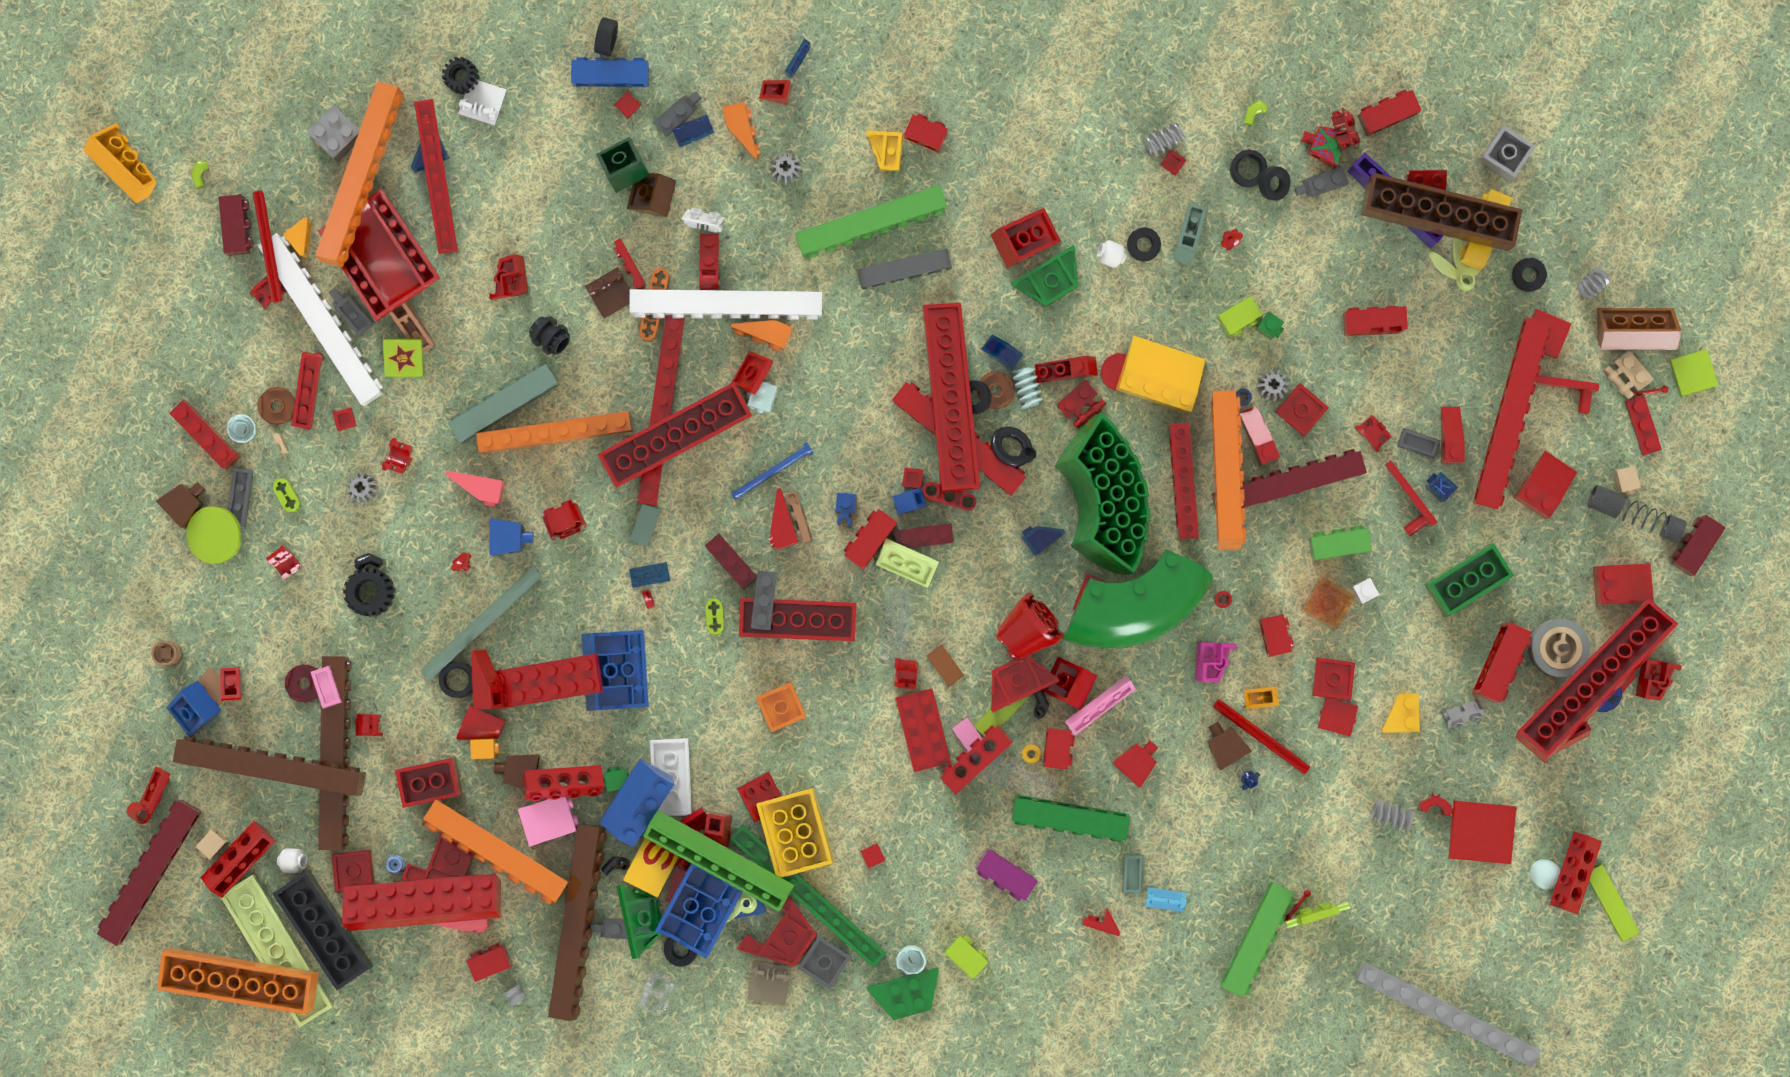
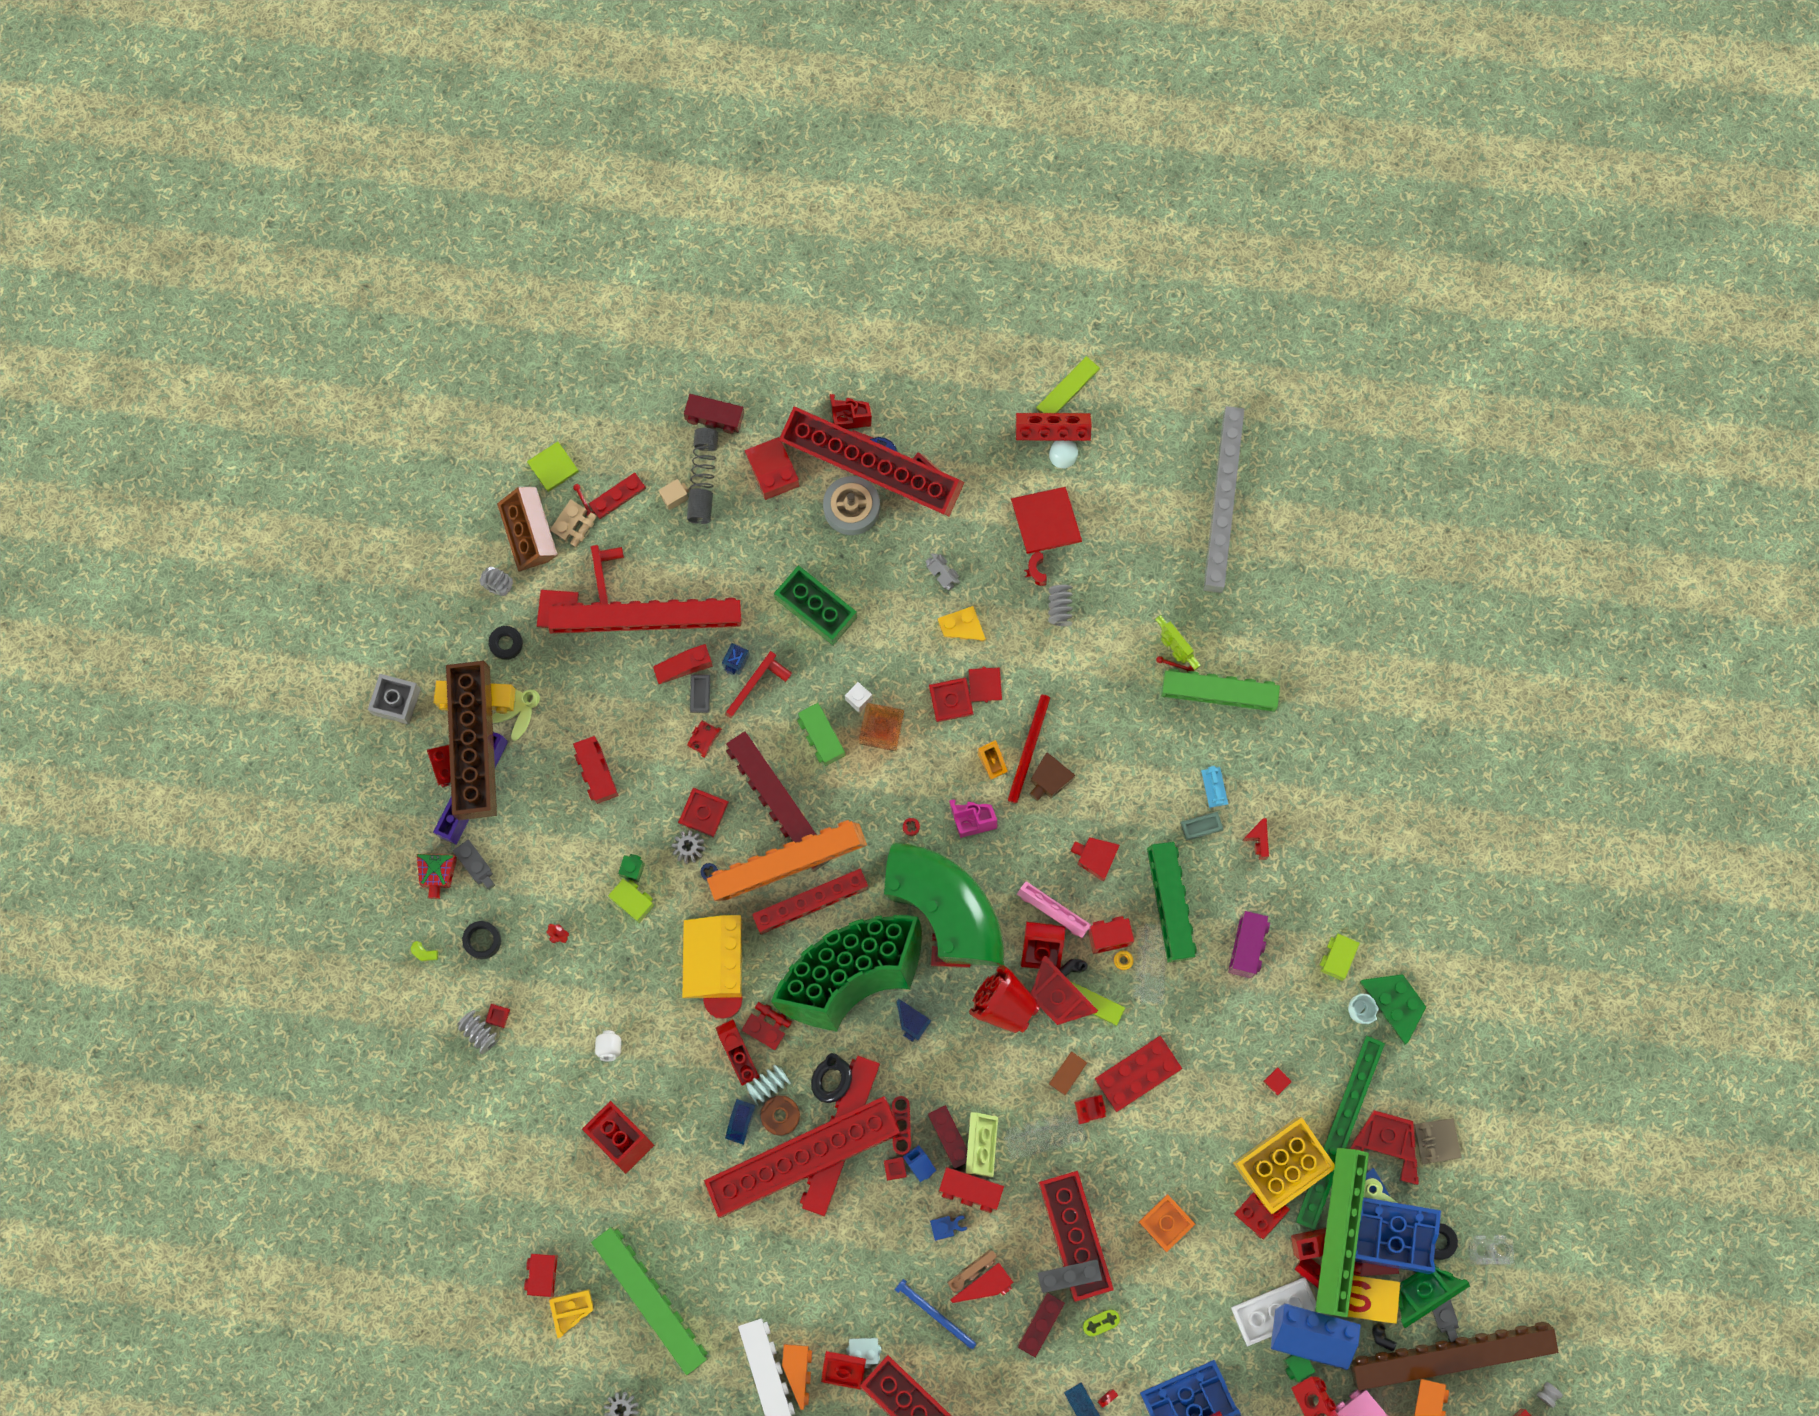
camera: 110 degrees left, 10 degrees down
(824, 962) = (1397, 1093): dark grey plate -> none
(903, 268) = (687, 1249): dark grey beam -> none
(957, 782) = (1177, 1021): red brick -> none
(967, 735) = (1129, 1024): bright pink tile -> none
(986, 396) = (788, 1123): black tyre -> none
(1050, 279) = (652, 1098): green wing -> none
(1155, 244) = (576, 1017): black tyre -> none
(1189, 234) = (564, 975): sand green slope -> none
(1250, 780) = (1074, 745): clear blue plate -> none
(1259, 436) = (742, 843): slope -> none
(1276, 635) = (928, 765): red brick -> none
(1284, 183) = (489, 918): black tyre -> none
(1351, 137) = (420, 849): red hinge -> none
(1389, 112) = (385, 823): red brick -> none
(1502, 662) = (883, 550): red brick -> none
(1545, 485) = (702, 564): red slope -> none

